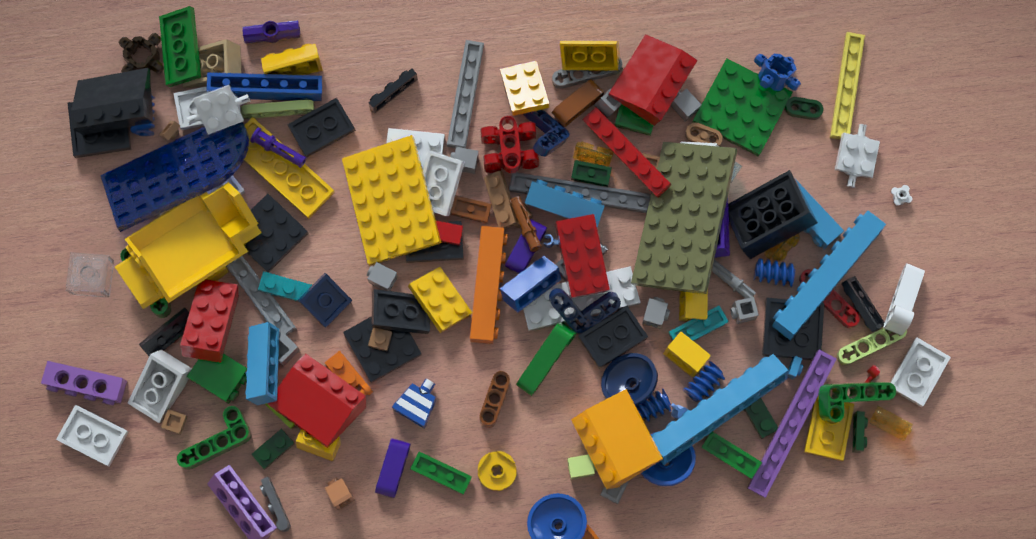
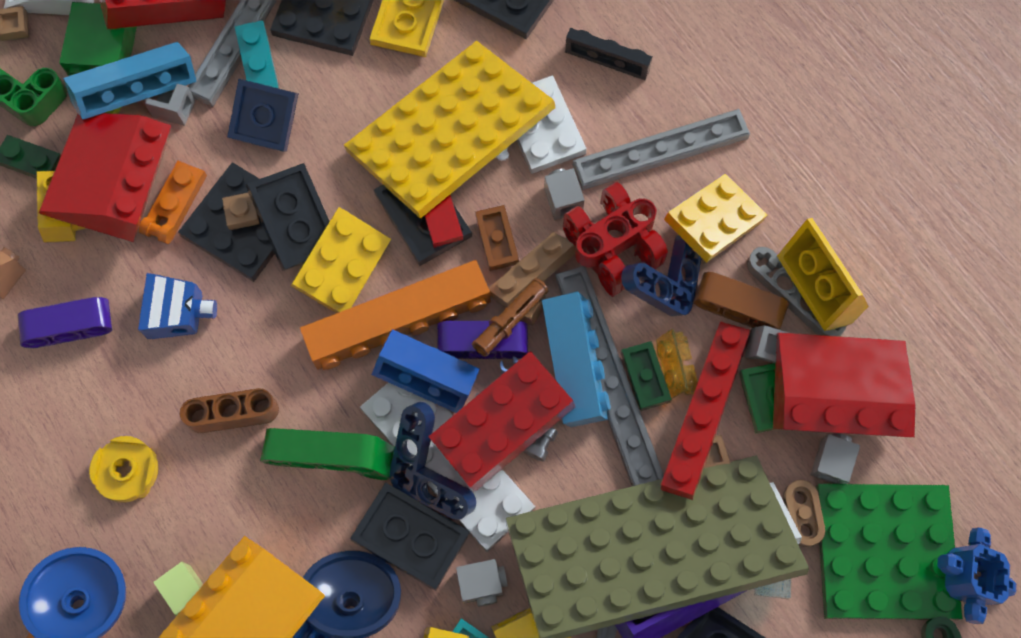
camera: 65 degrees right, 5 degrees down
(382, 277) = (332, 170): light grey brick -> none
(441, 473) = (86, 392): green plate -> none
(442, 180) = (514, 173): white plate -> none

